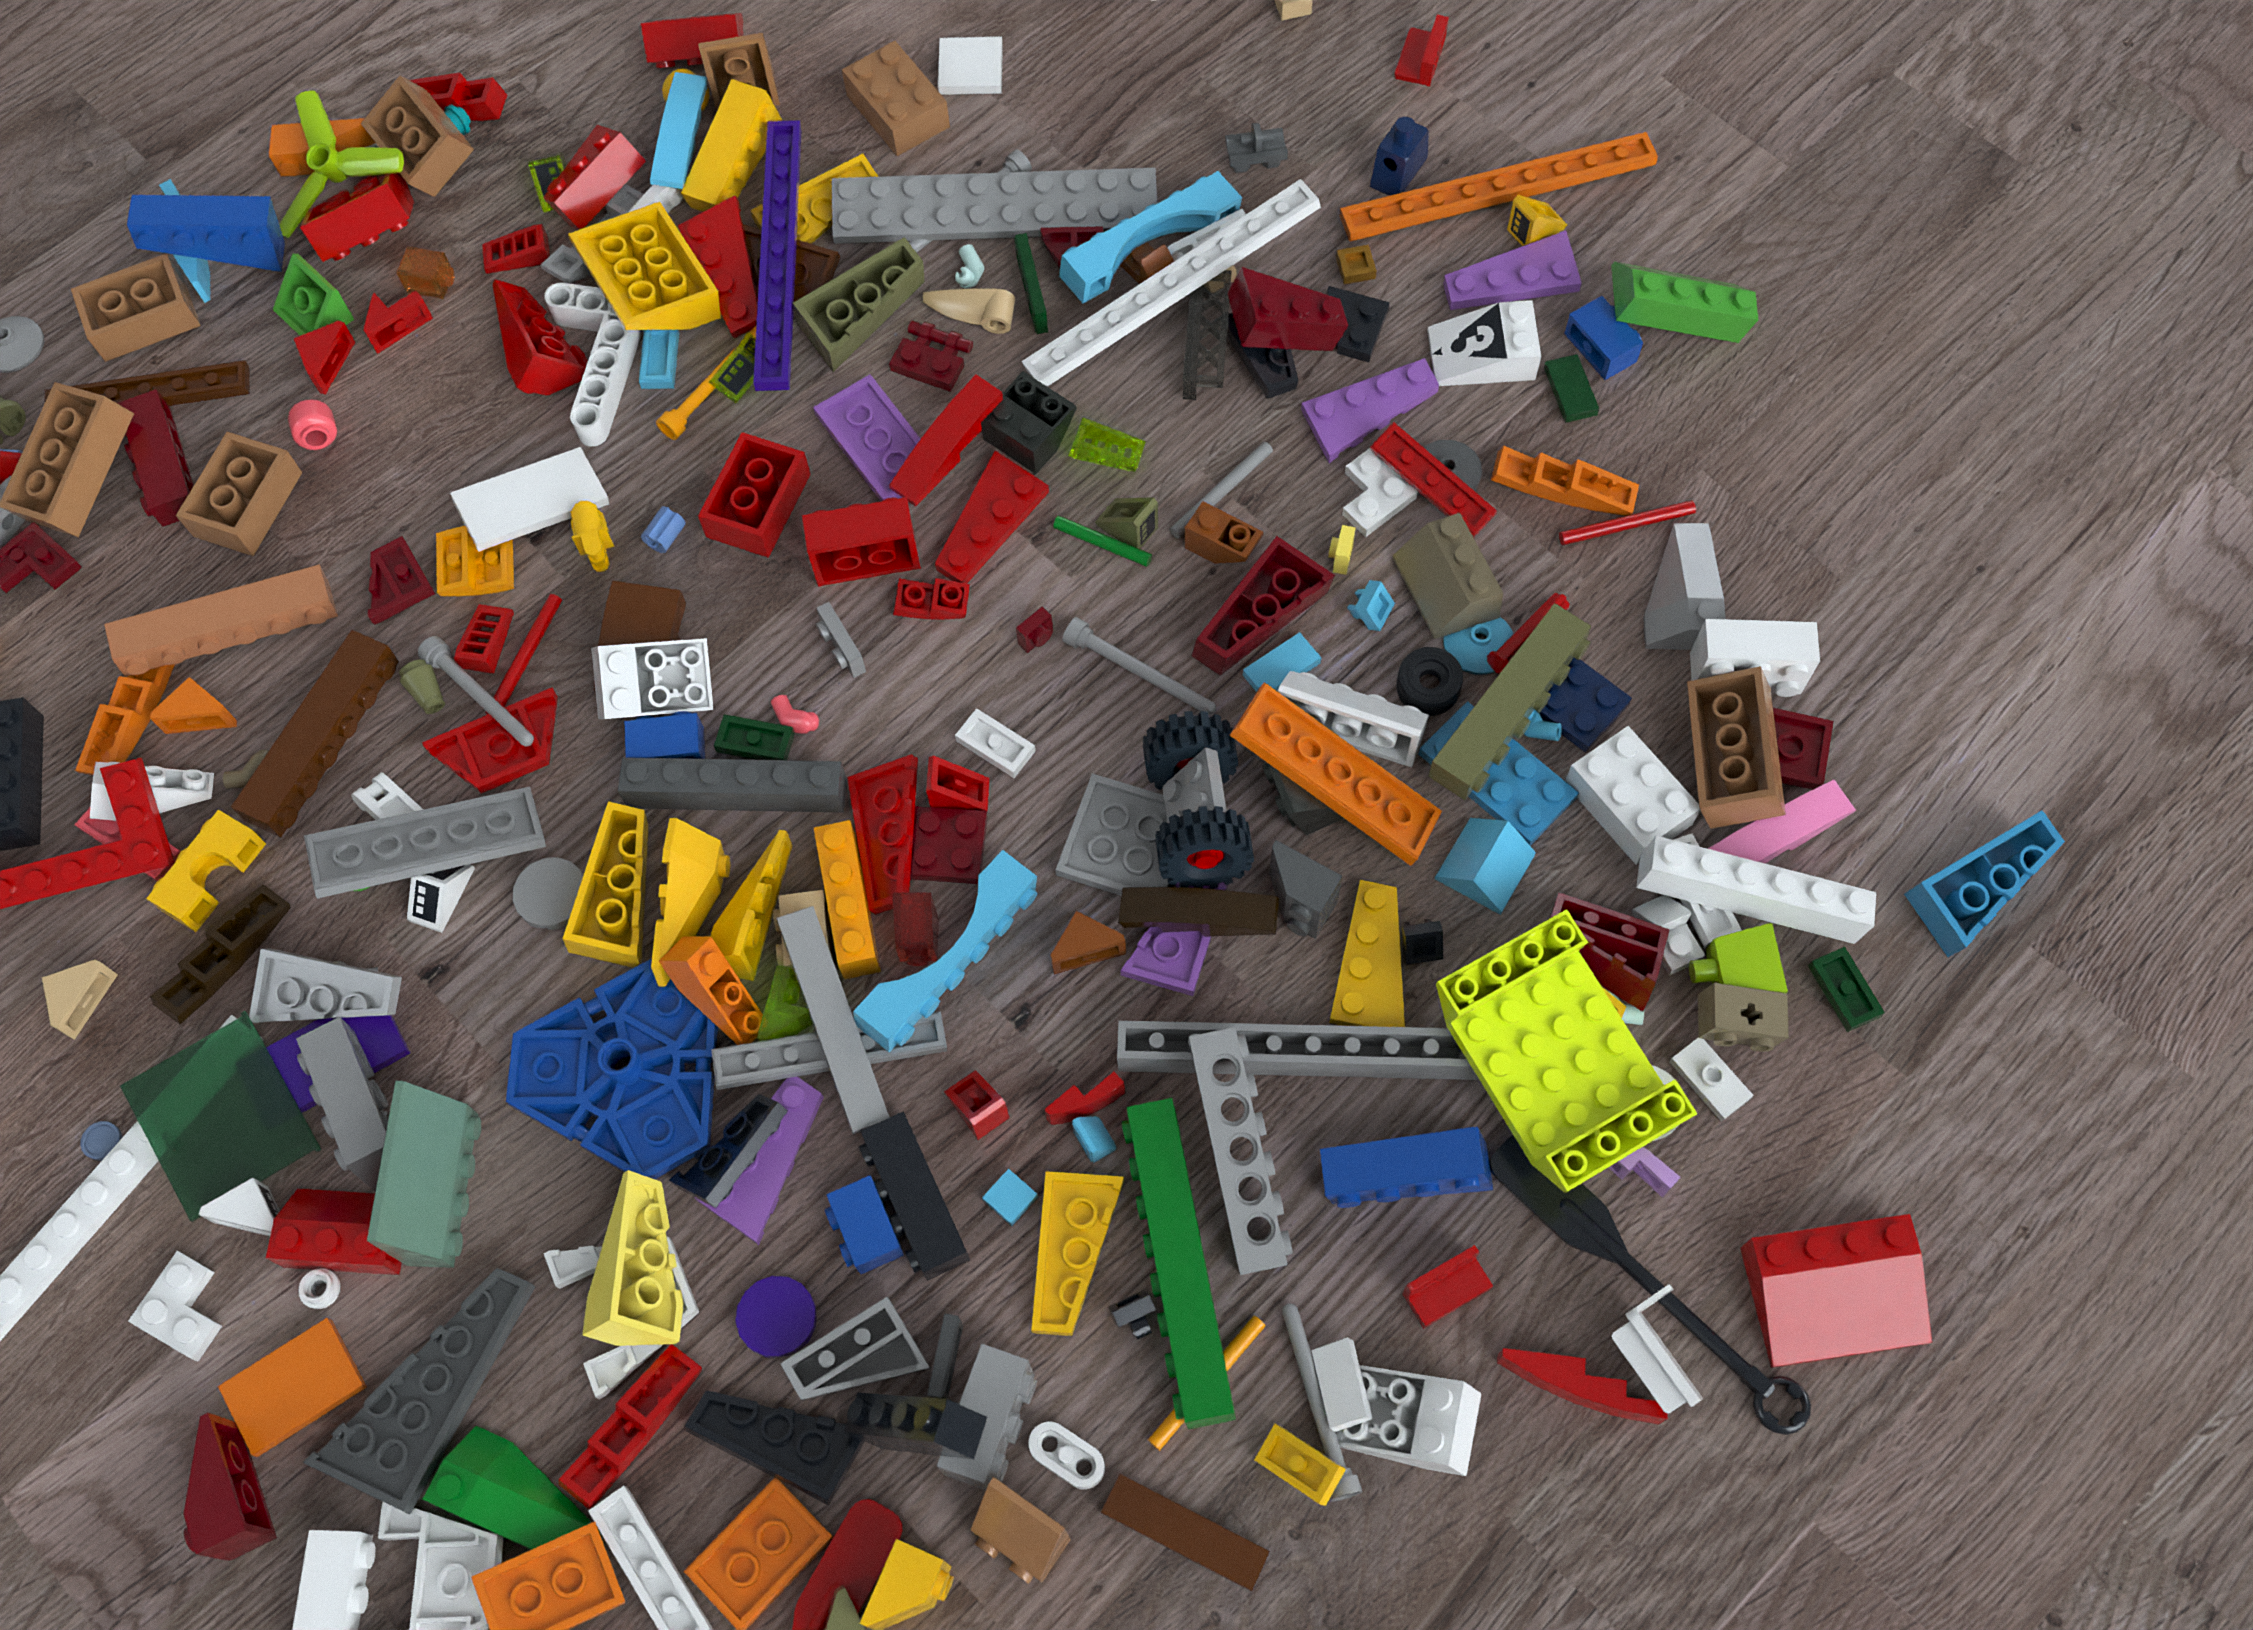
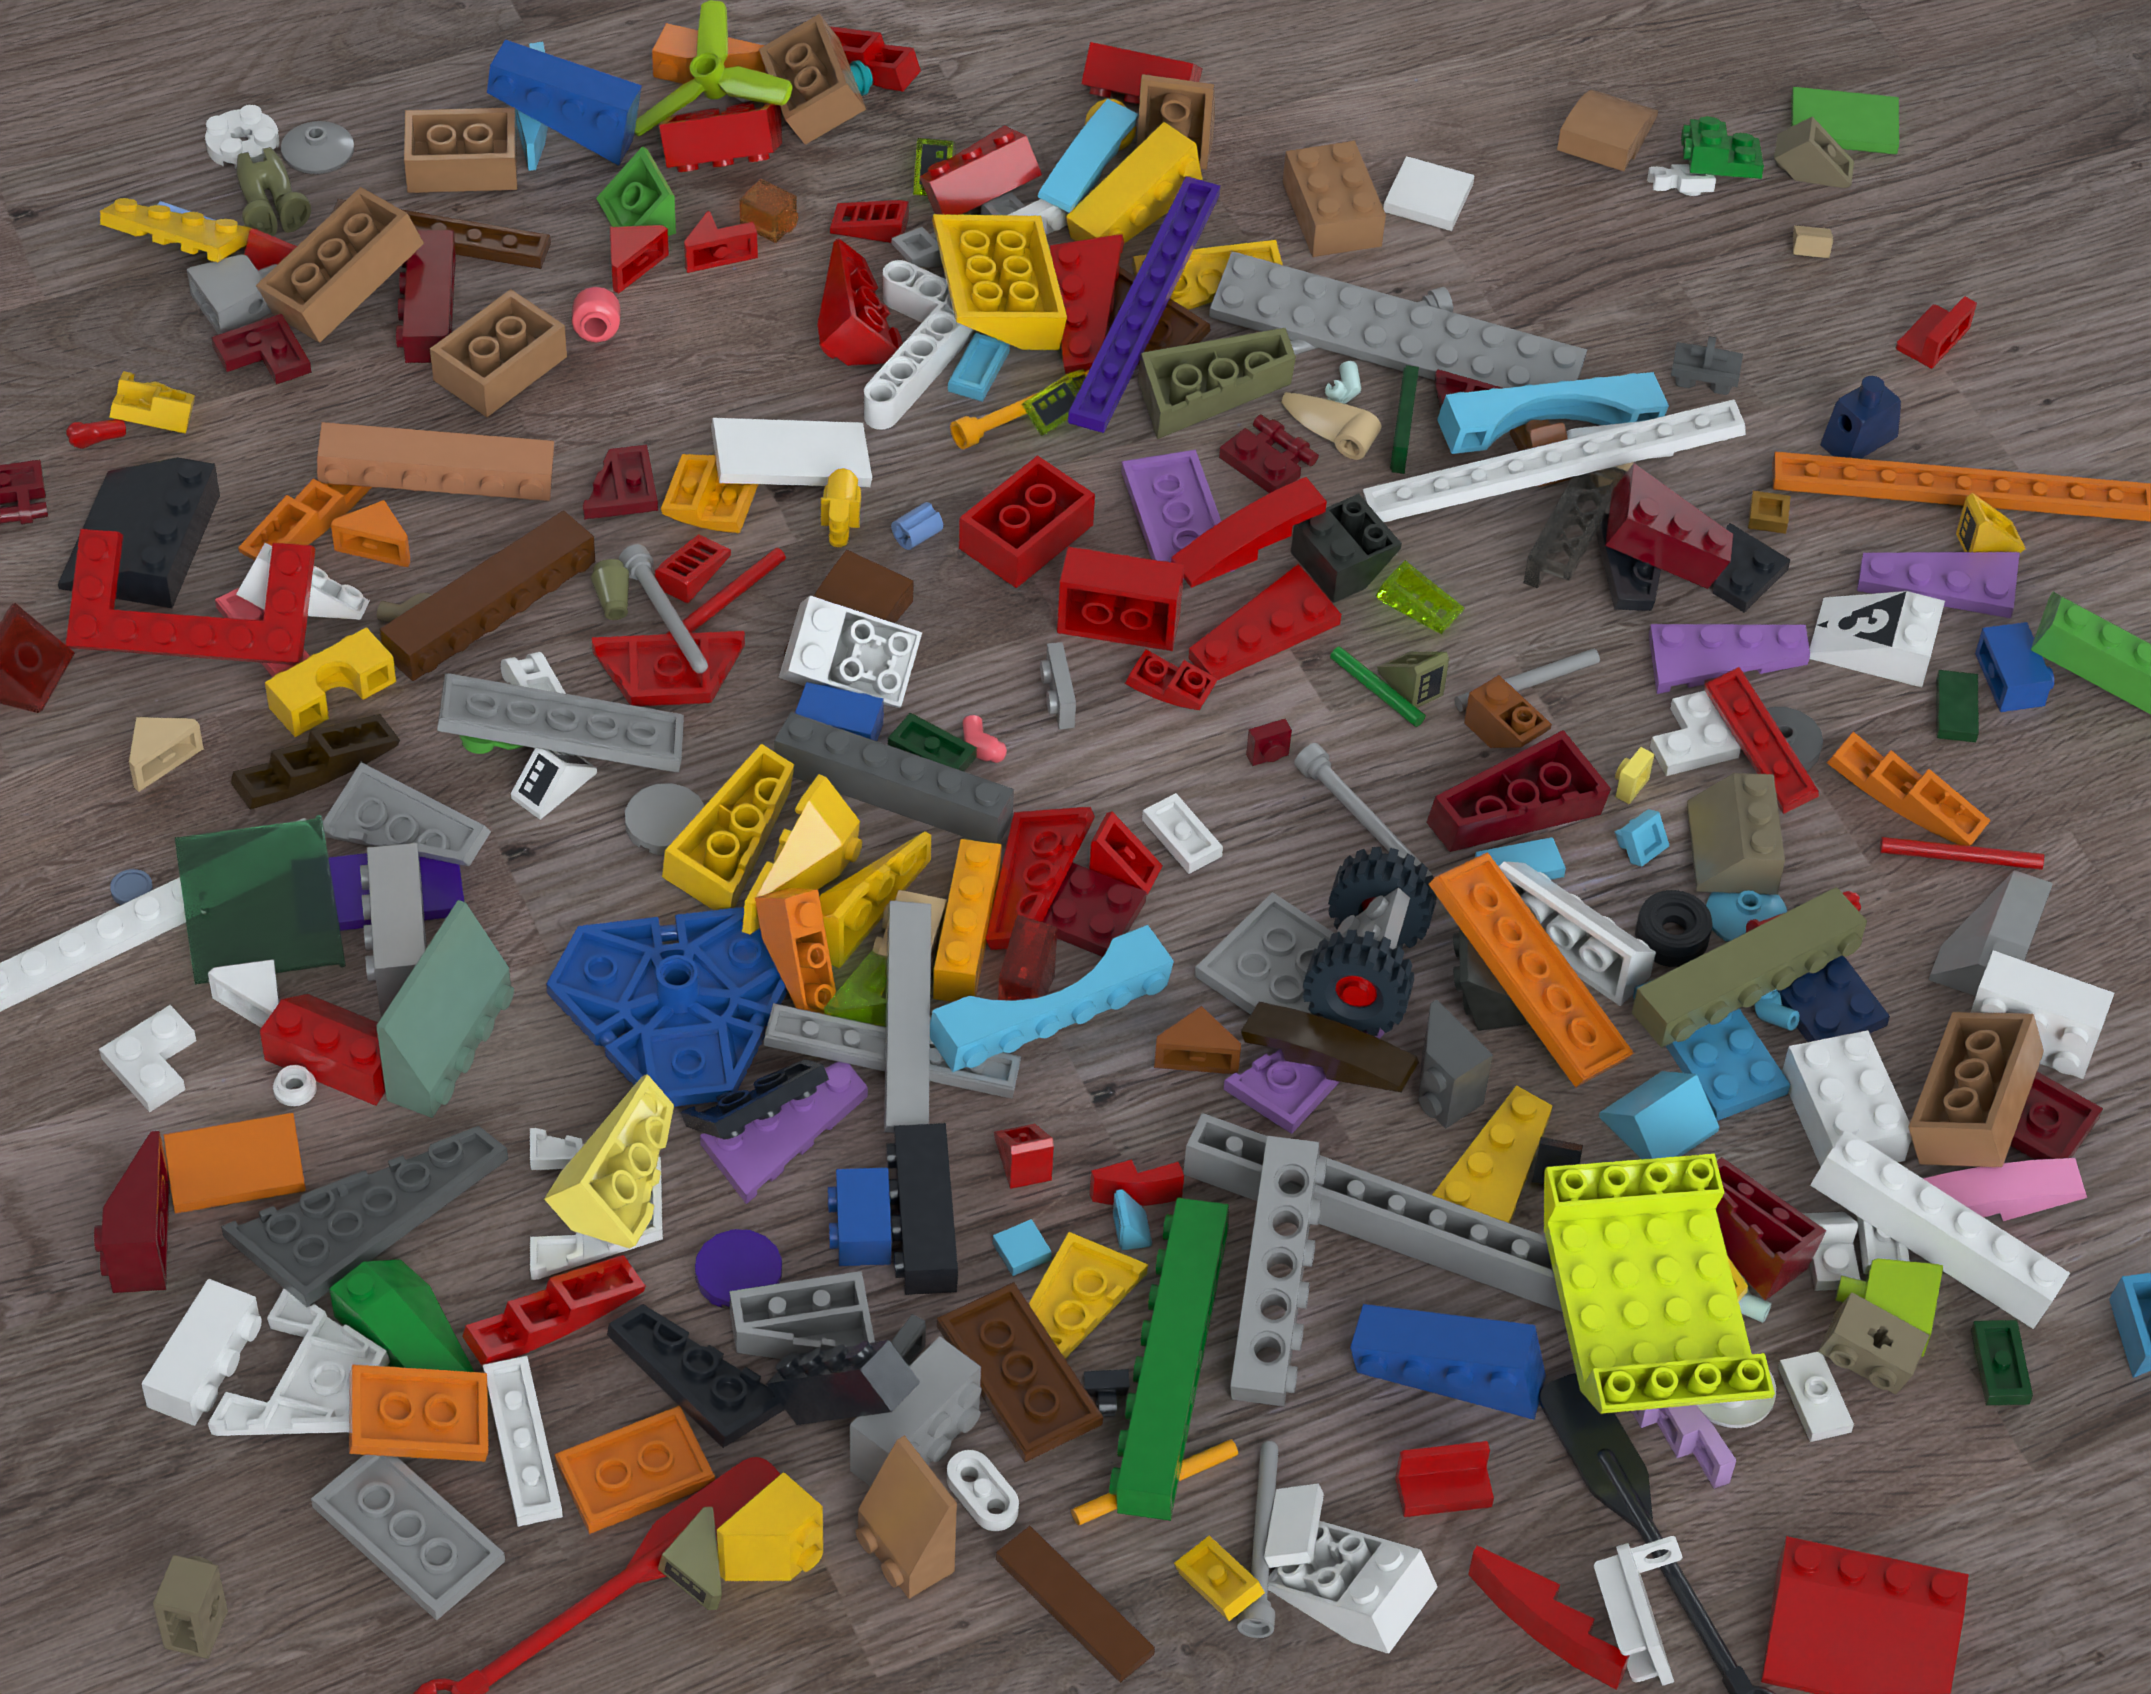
camera: 15 degrees right, 15 degrees down
(1056, 1330) = (1021, 1372): none -> reddish brown tile

